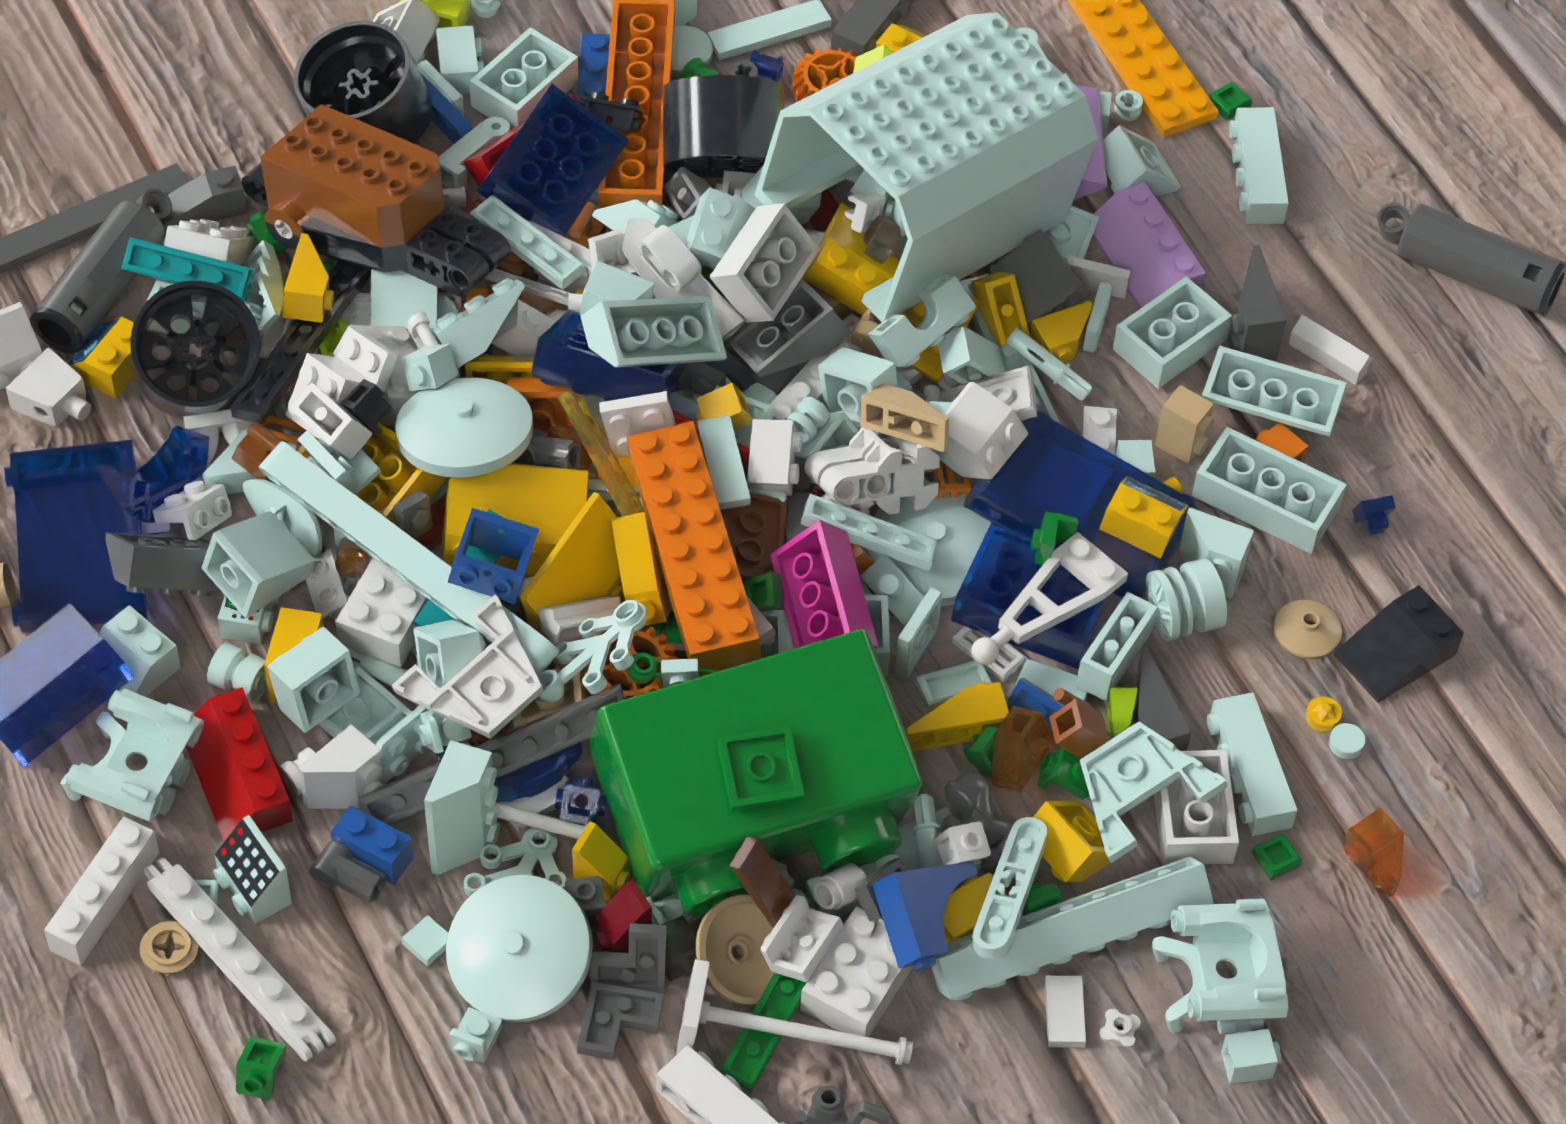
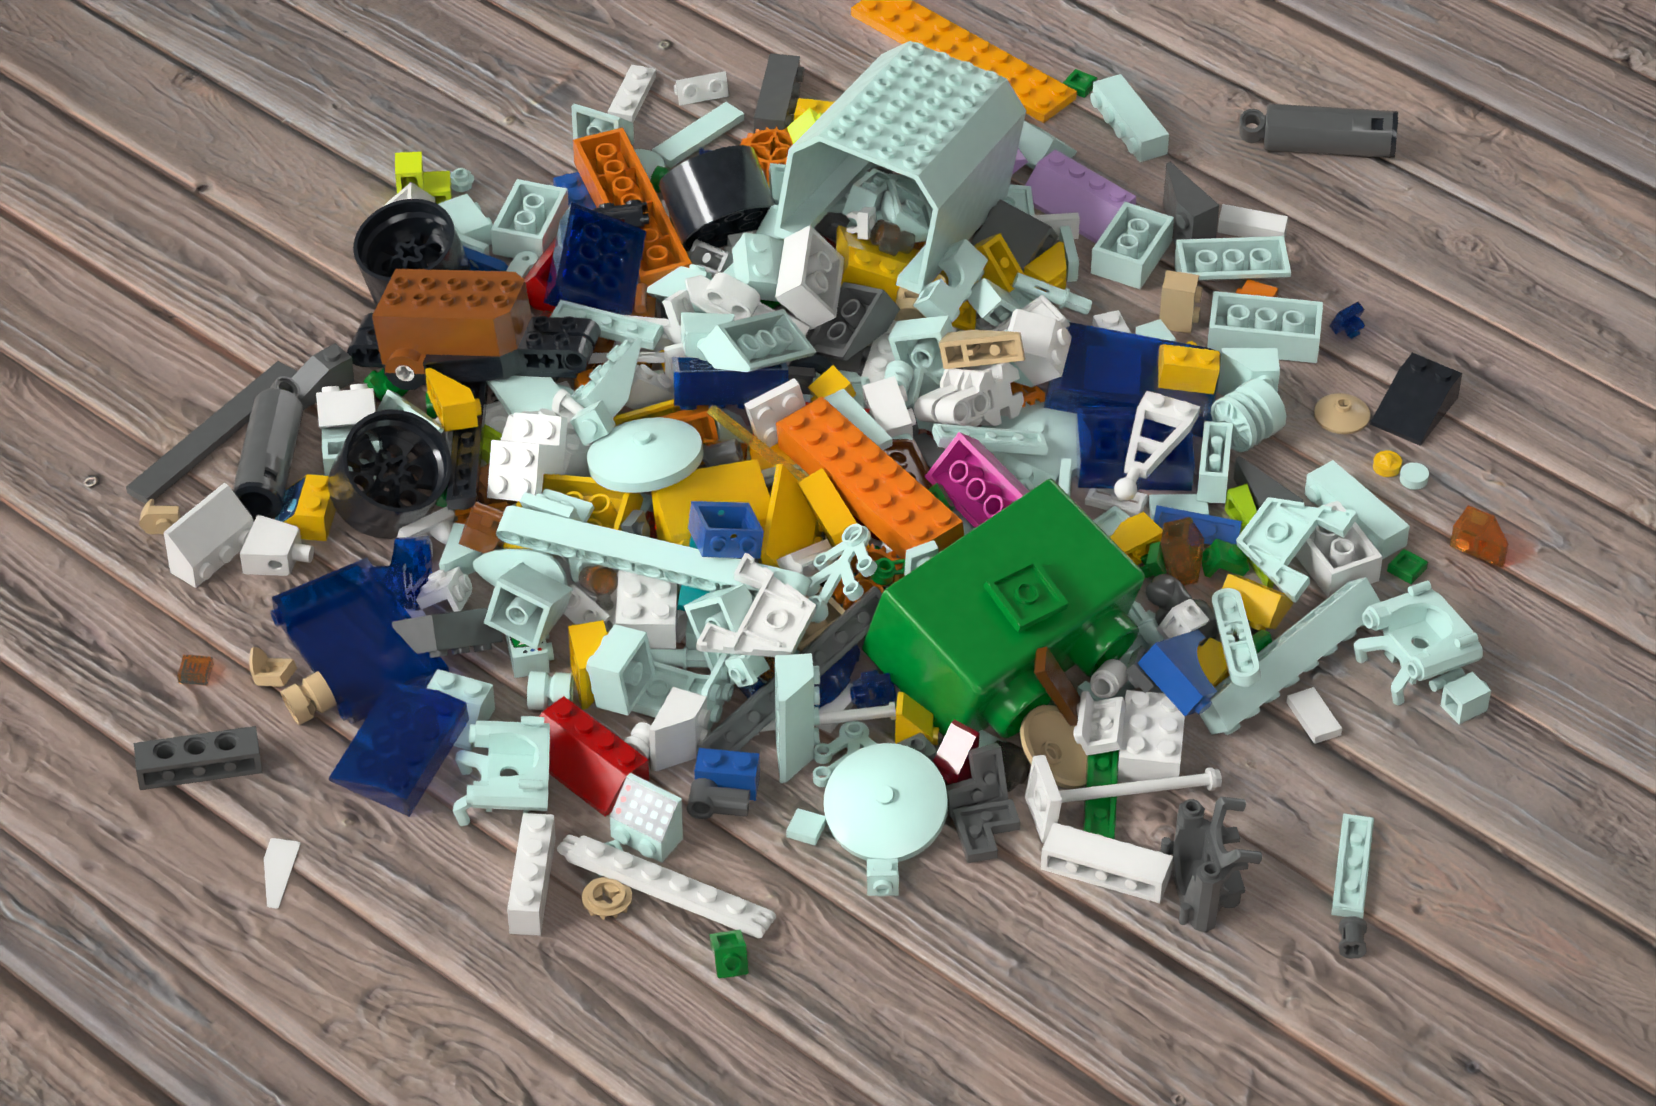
camera: 20 degrees left, 10 degrees down
(180, 266) = (331, 421): teal tile -> none
(331, 421) = (541, 477): white slope -> none
(367, 405) = (560, 461): black panel -> none
(1053, 528) = (1129, 397): green bracket -> none
(1077, 725) = (1221, 517): dark orange brick -> none
(1117, 1037) = (1361, 713): white plate -> none

